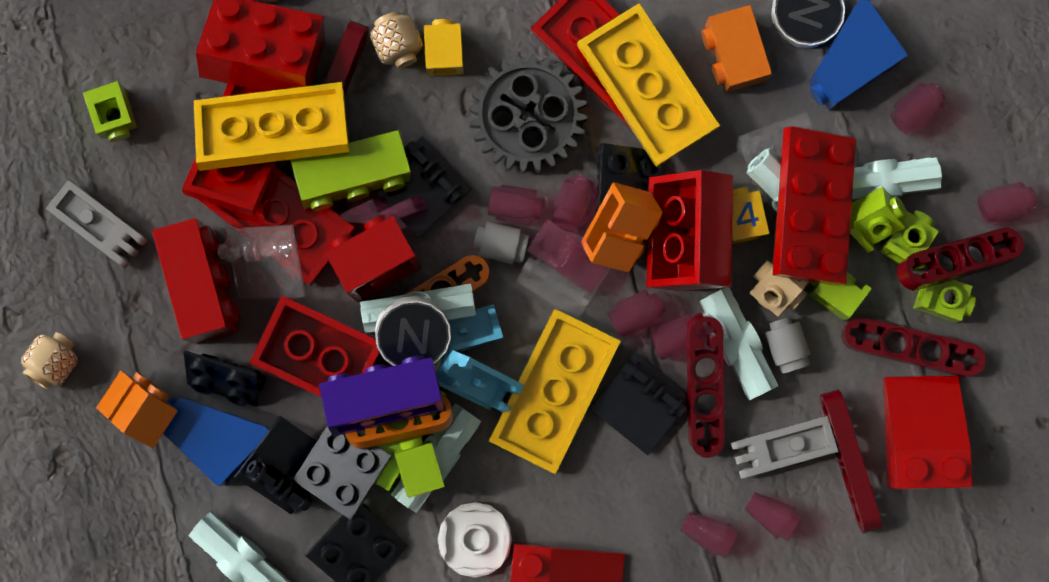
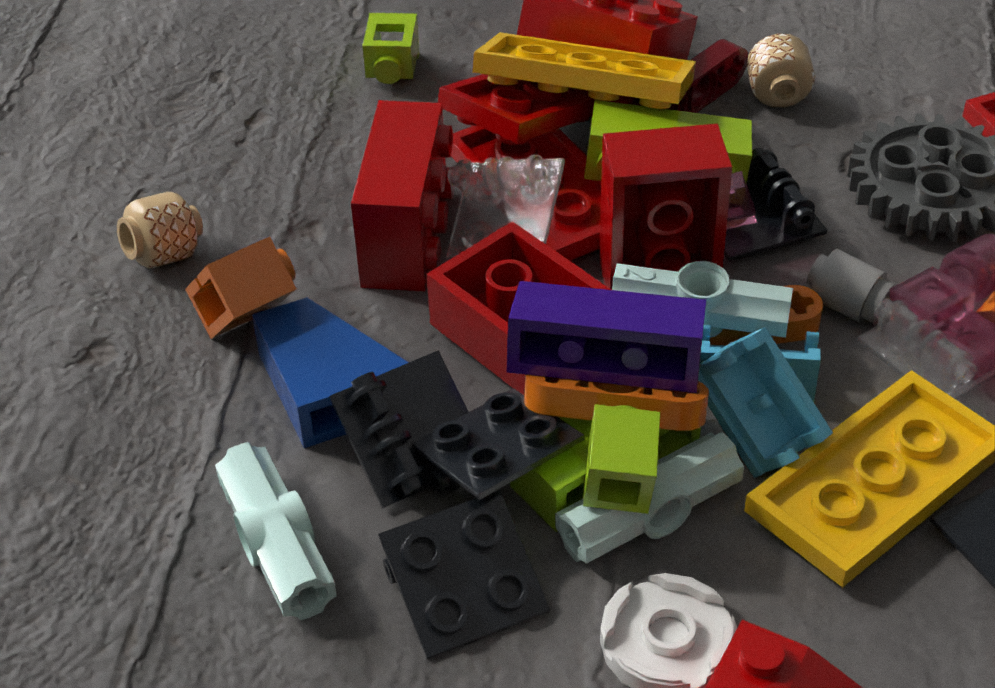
camera: 25 degrees right, 40 degrees down
(95, 223) = (308, 135): light grey hinge -> none
(210, 375) = (381, 292): black hinge -> none
(412, 329) = (694, 270): black tile -> none
(443, 48) = (839, 96): yellow brick -> none
(515, 204) = (888, 249): clear pink brick -> none

